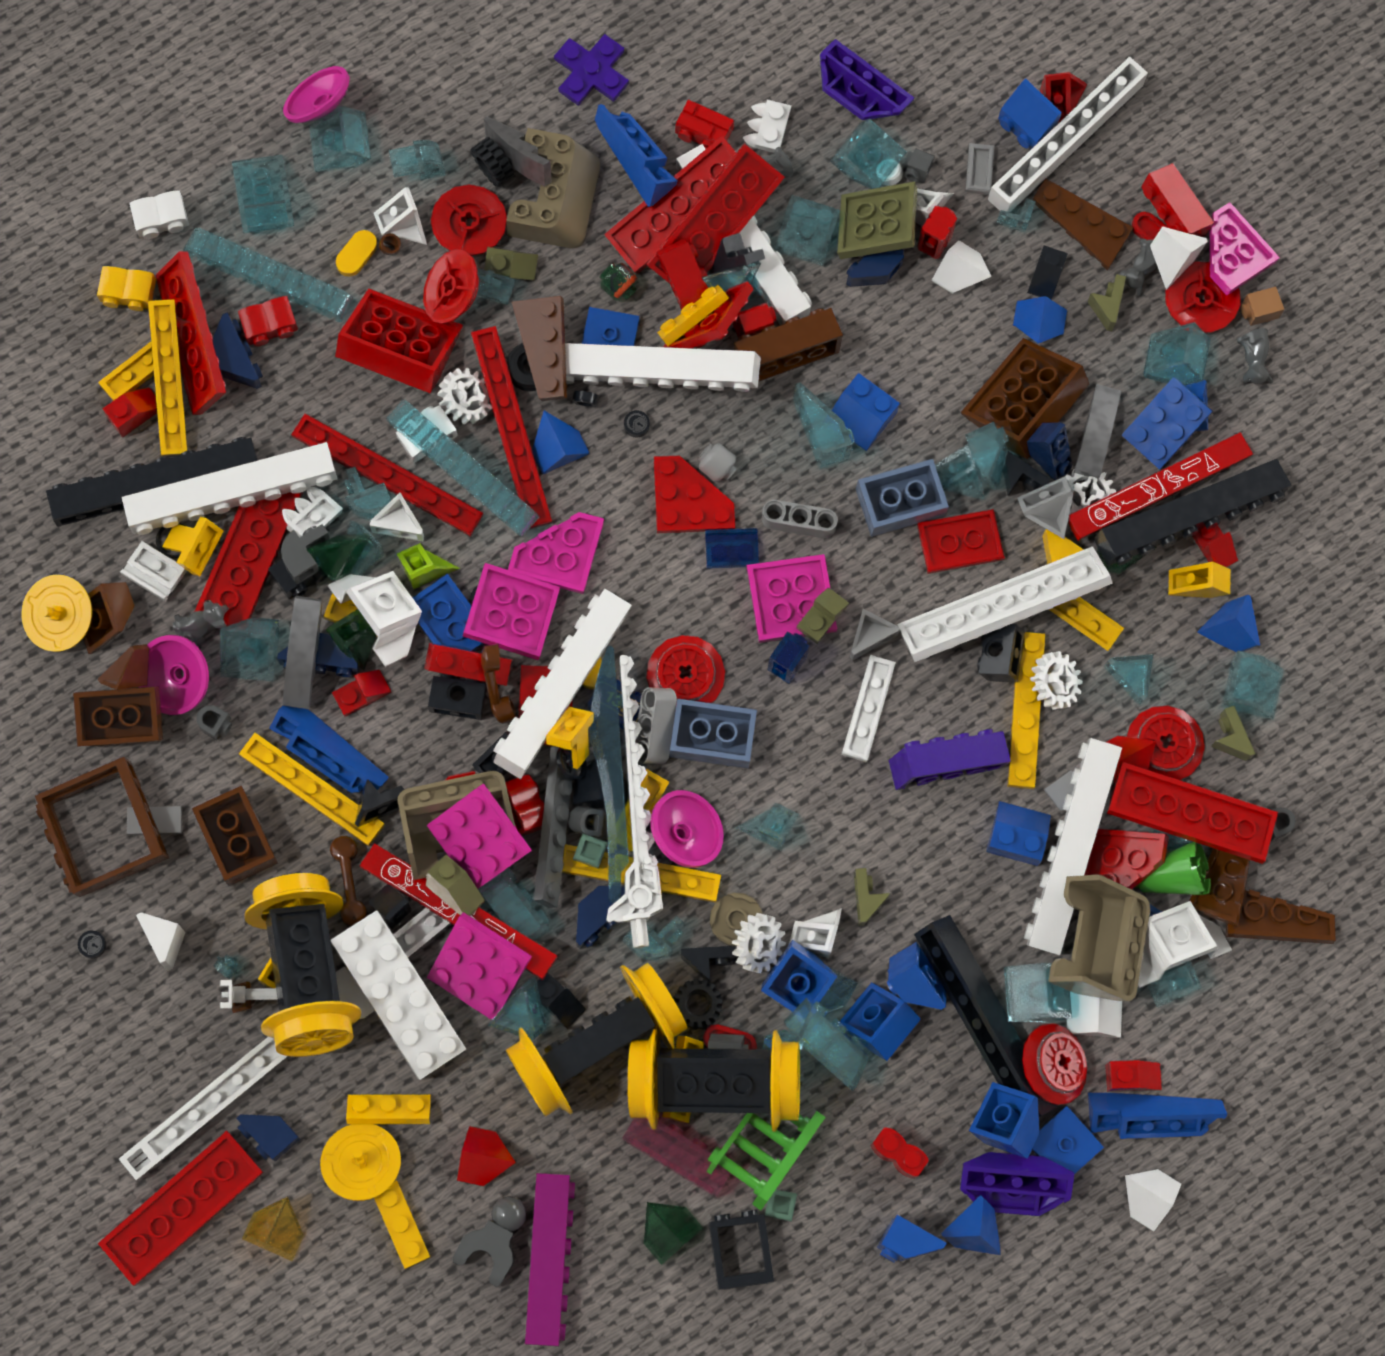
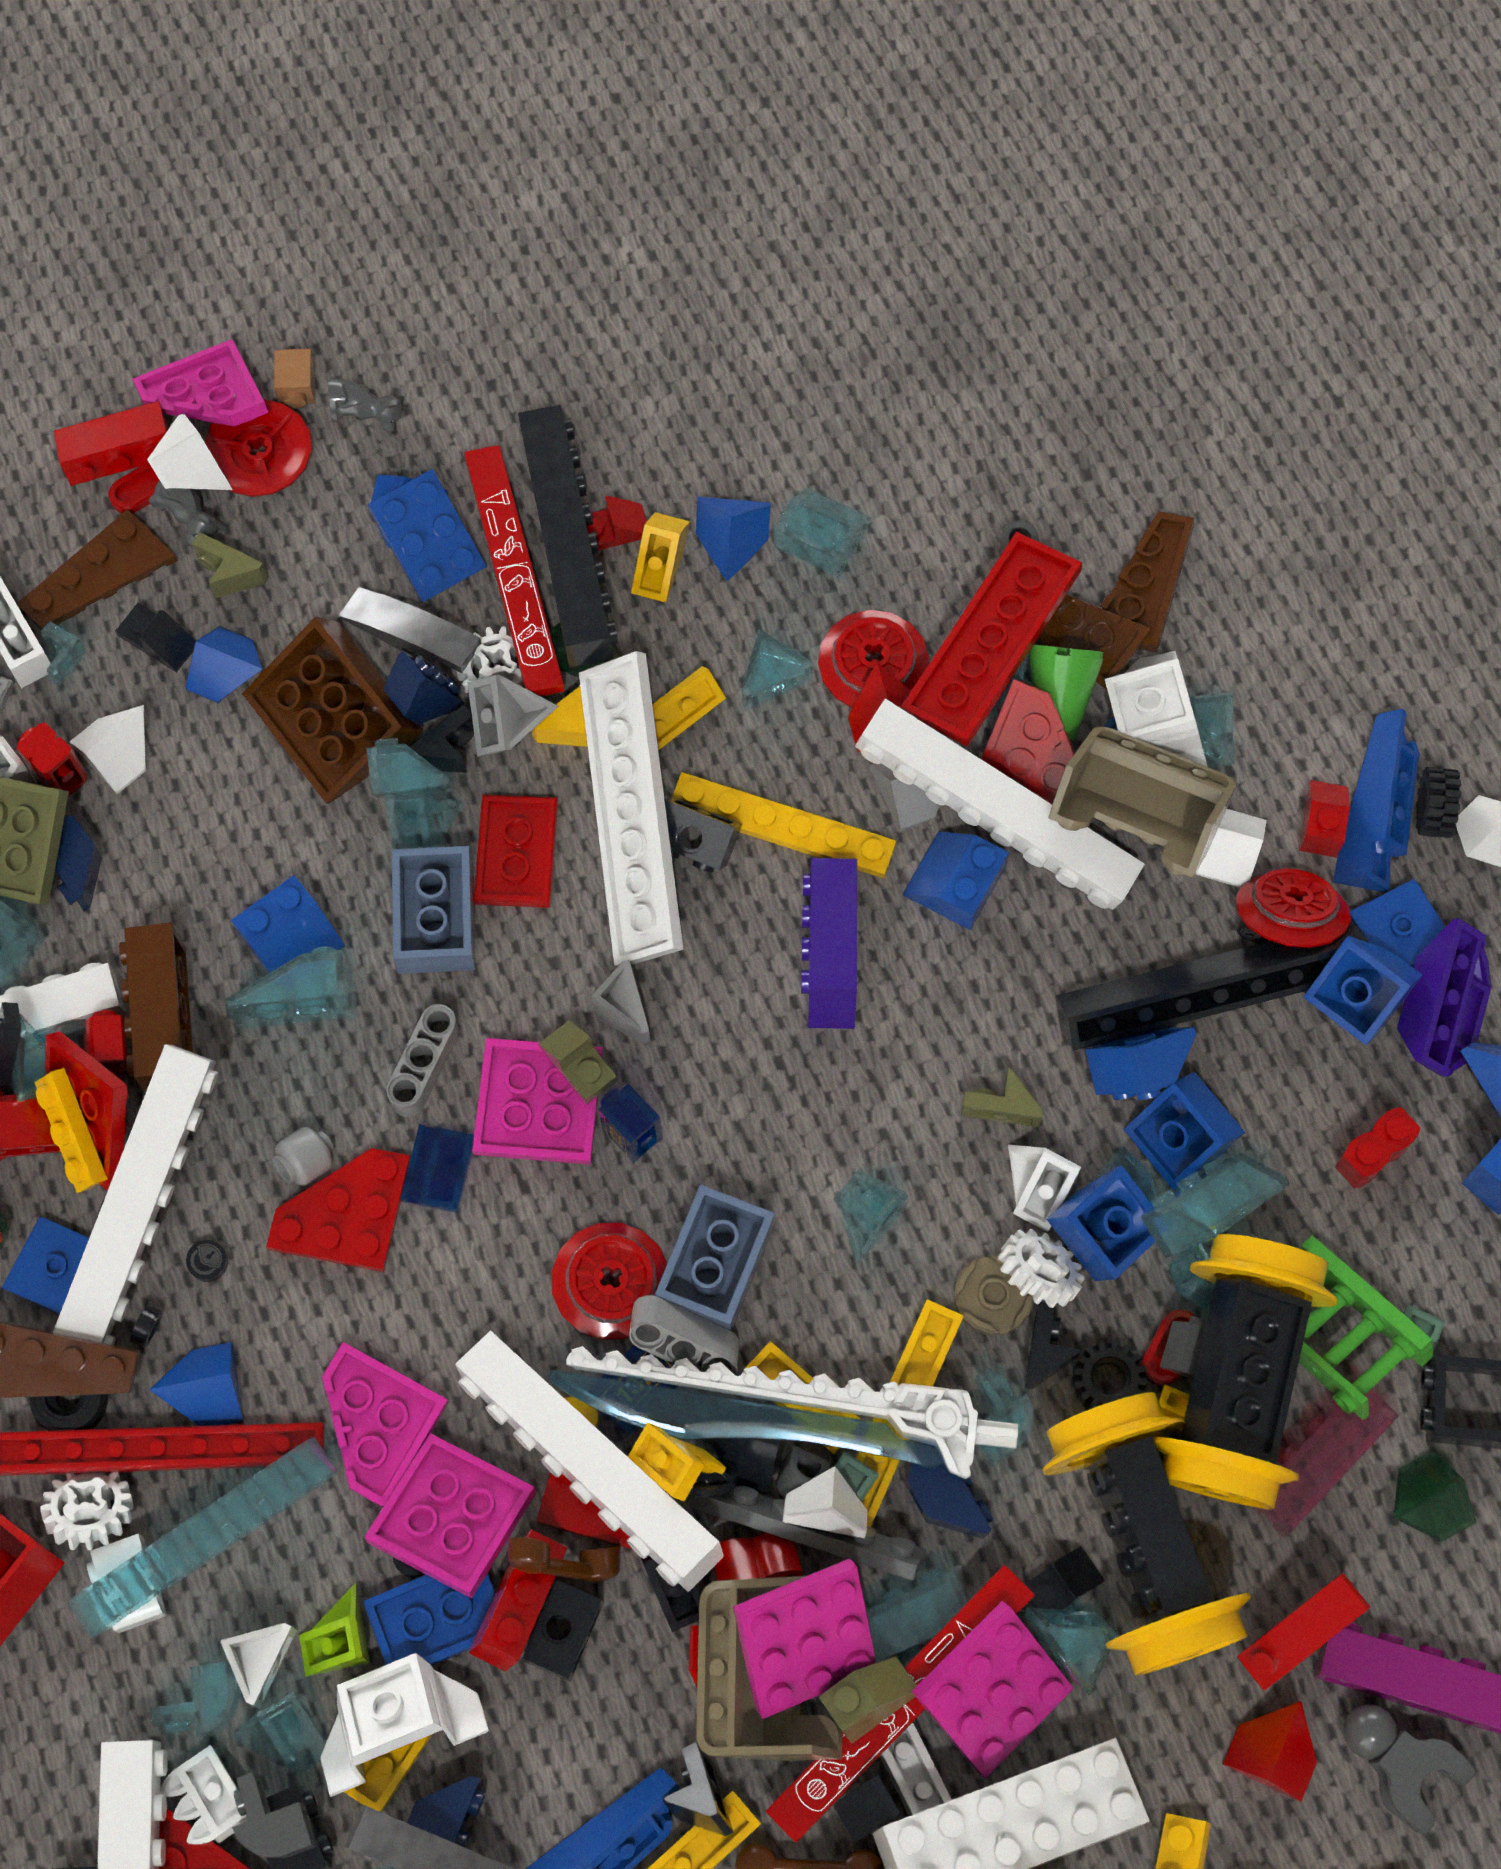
camera: 70 degrees left, 5 degrees down
(339, 554) = (286, 1763): clear green slope -> none
(353, 637) = (425, 1772): clear green slope -> none
(363, 691) = (513, 1782): red slope -> none
(396, 479) = (171, 1663): red tile -> none
(558, 1154) = (1303, 1631): none -> red slope
(568, 837) = (826, 1505): none -> white slope
(695, 823) = (850, 1330): dark pink dish -> none
(868, 708) = (727, 1035): white tile -> none
(1033, 997) = (1191, 910): clear light blue slope -> none
(1056, 680) = (754, 771): white gear -> none
(1162, 1151) = (1438, 802): none -> black tyre
(1178, 354) = (332, 499): clear light blue slope -> none
(1237, 742) = (893, 565): olive slope -> none

